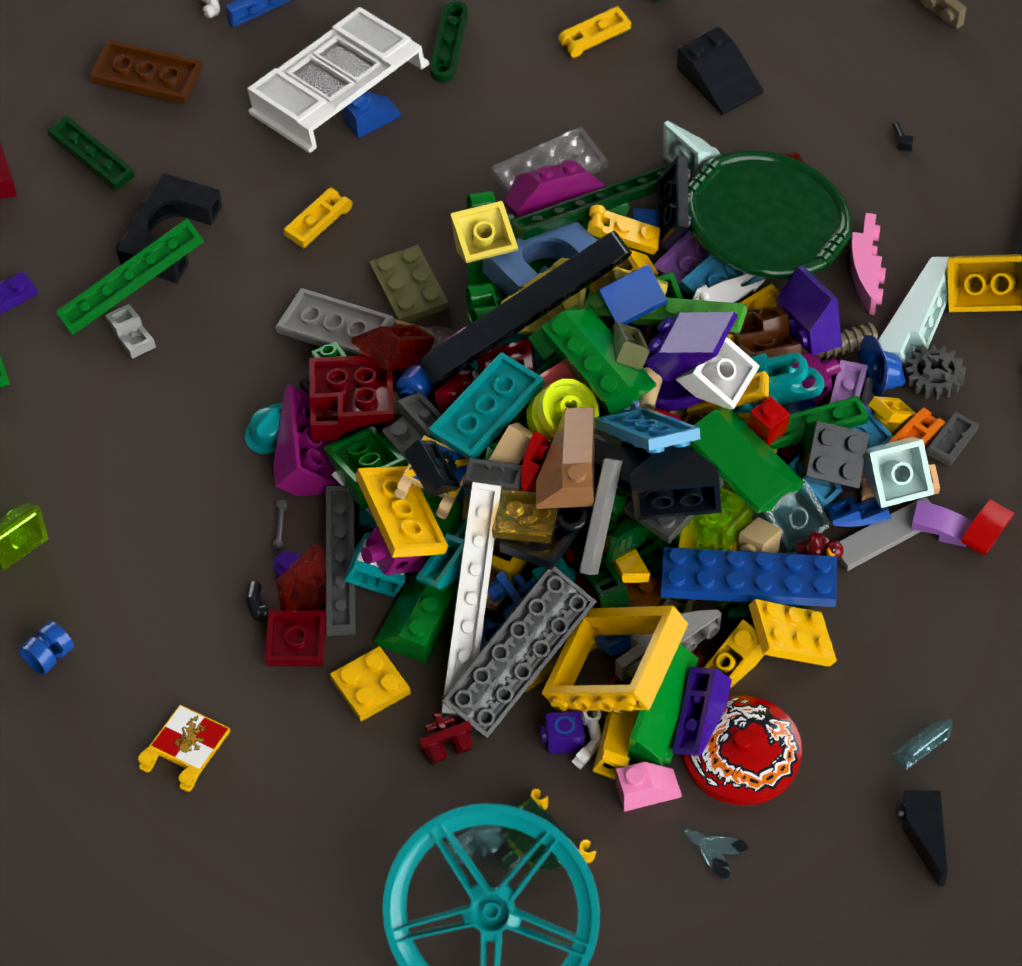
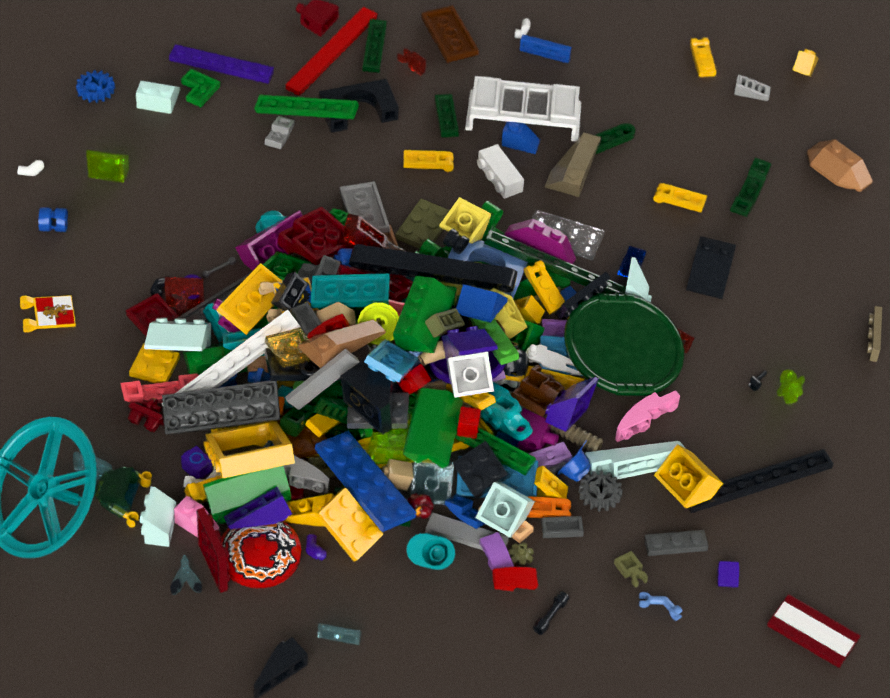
camera: 45 degrees right, 5 degrees down
(53, 200) = (330, 52): none -> red tile
(157, 131) = (415, 61): none -> clear red plate
(268, 156) = (446, 115): none -> dark green plate
(368, 627) = (178, 335): none -> light aqua slope
(402, 161) = (500, 171): none -> white brick
(420, 701) = (137, 393): none -> coral slope
(465, 92) = (572, 169): none -> dark tan wedge
(506, 260) = (456, 241): none -> black wheel
(617, 822) = (158, 518): none -> light aqua slope
(643, 134) = (634, 252): none -> clear blue slope
(724, 790) = (212, 550): none -> dark red plate
(786, 694) = (313, 549): none -> dark purple arm
(894, 579) = (431, 551): none -> teal piece
(947, 114) = (790, 386): none -> clear neon green hips
(954, 500) = (521, 554): none -> olive plant

